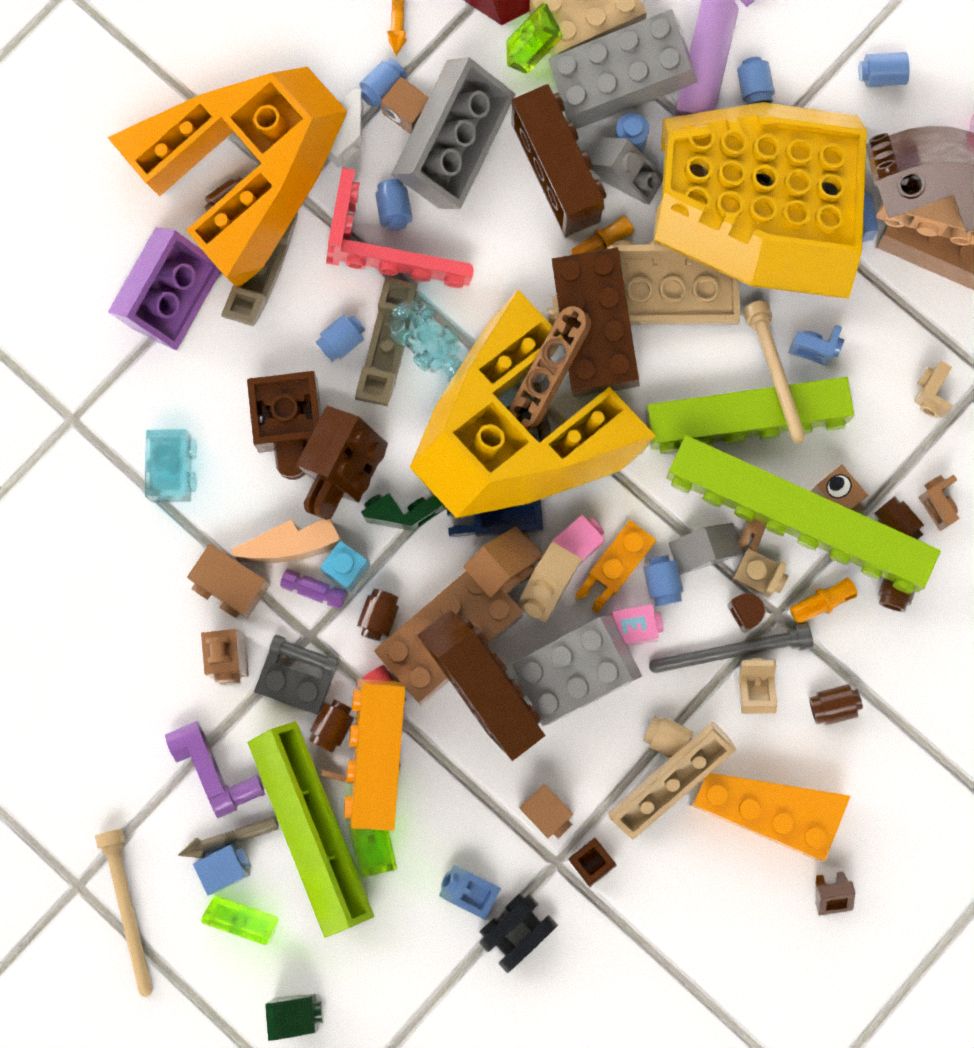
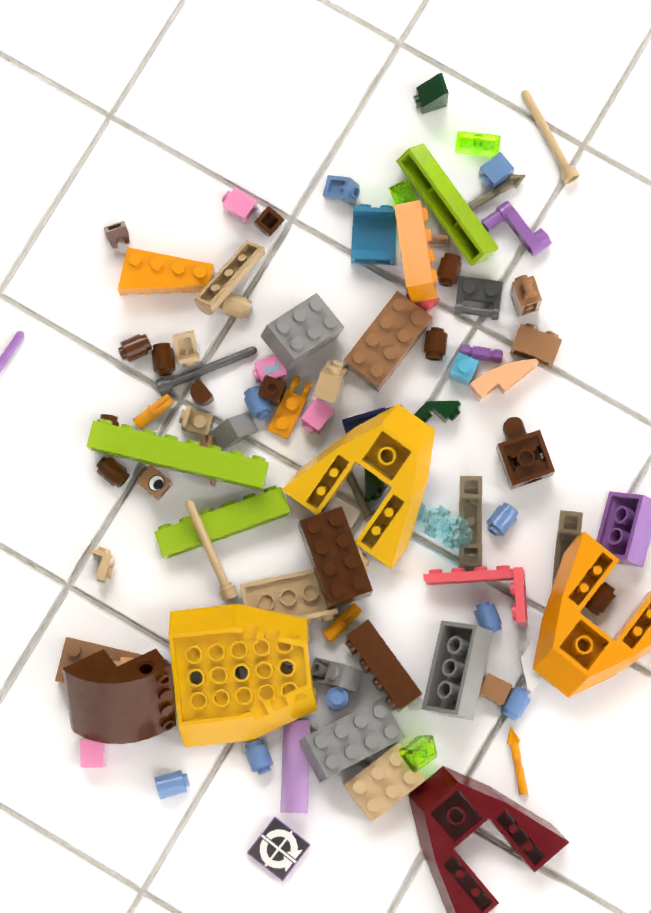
camera: 170 degrees right, 0 degrees up
(169, 465) = (592, 411): clear light blue brick -> none
(339, 460) = (481, 431): reddish brown brick -> none
(434, 806) = (373, 235): none -> dark azure panel
(483, 684) = (359, 305): reddish brown brick -> none
(496, 932) = (308, 183): black brick -> none
(504, 562) = (361, 388): medium nougat brick -> none
(544, 365) = (356, 514): medium nougat beam -> none
(547, 812) = (303, 245): medium nougat brick -> none
(635, 900) = (239, 205): none -> bright pink brick
(639, 591) = (272, 390): none -> reddish brown bracket
(795, 677) = (163, 359): none -> reddish brown brick
(814, 348) = (189, 578): medium blue bracket -> none
(940, 507) = (87, 487): medium nougat bracket -> none

